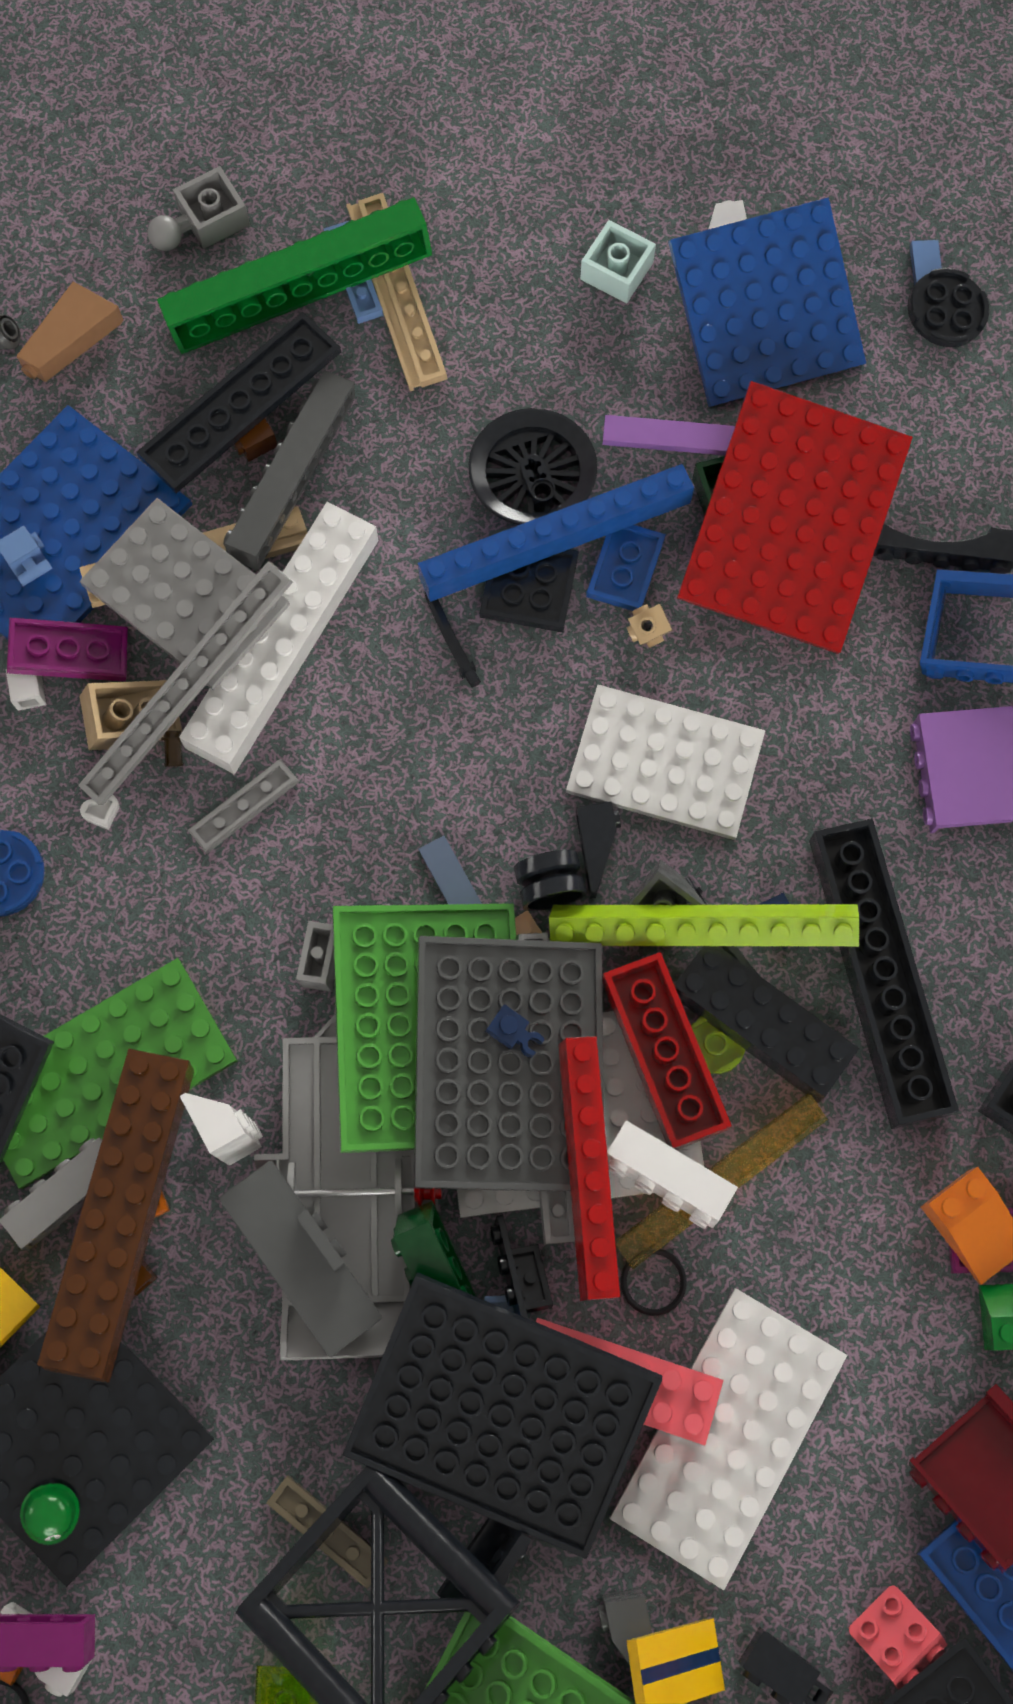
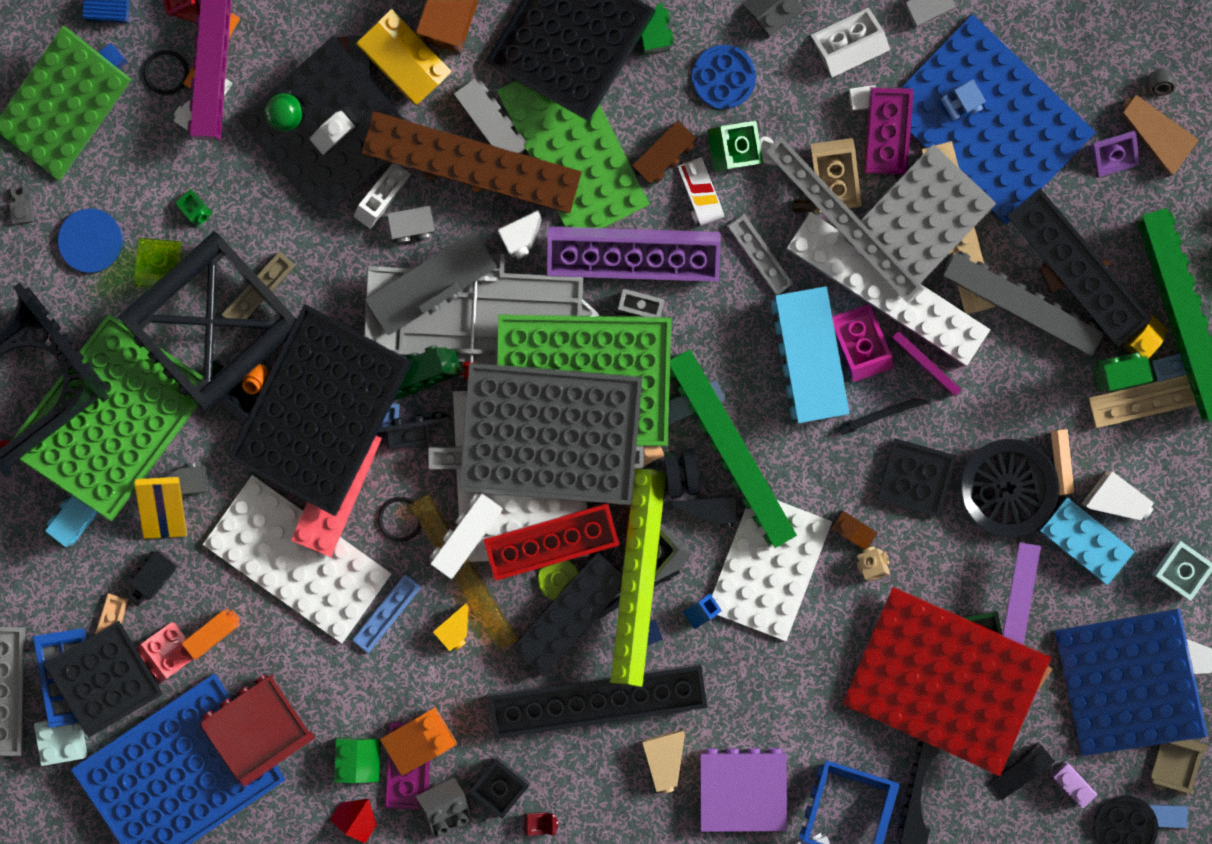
camera: 95 degrees right, 15 degrees up
(78, 1433) = (332, 132): none -> white slope
(92, 848) = (735, 146): none -> green slope
(93, 379) = (1115, 154): none -> medium lavender slope
(105, 941) = (665, 153): none -> reddish brown brick
(171, 880) = (701, 192): none -> white door
(176, 1349) = (381, 195): none -> white slope
(205, 1649) = (194, 208): none -> green bracket
(217, 1299) = (411, 223): none -> light grey brick
(246, 972) = (633, 254): none -> medium lavender brick
(337, 319) = (1147, 339): none -> yellow slope
(355, 663) = (862, 343): none -> dark pink slope
(371, 333) = (1121, 372): none -> green brick
(374, 723) = (810, 355): none -> medium azure brick
(377, 578) = (922, 361): none -> magenta tile
(464, 1524) = (256, 379): none -> orange brick
(490, 412) = (1062, 461): none -> light nougat tile
(510, 1028) = (572, 436): dark blue plate -> none
(512, 815) = (732, 449): none -> green brick
(531, 339) = (1118, 498): none -> white slope
(555, 532) = (950, 501): blue brick -> none
(588, 1169) = (473, 480): red brick -> none
(593, 373) = (1086, 540): none -> medium azure brick
(605, 657) = (853, 530): none -> reddish brown slope
(626, 567) = (925, 551): blue plate -> none
(738, 840) = (702, 611): none -> blue brick
(794, 1291) = (386, 613): none -> medium blue tile
(805, 1186) = (454, 629): none -> yellow slope
(861, 1564) = (211, 633): none -> orange brick
(867, 256) = (1177, 766): none -> dark tan panel
(889, 412) = (1022, 771): none -> black slope
(905, 367) = (1073, 784): none -> lavender brick
(948, 875) = (664, 759): none -> tan slope

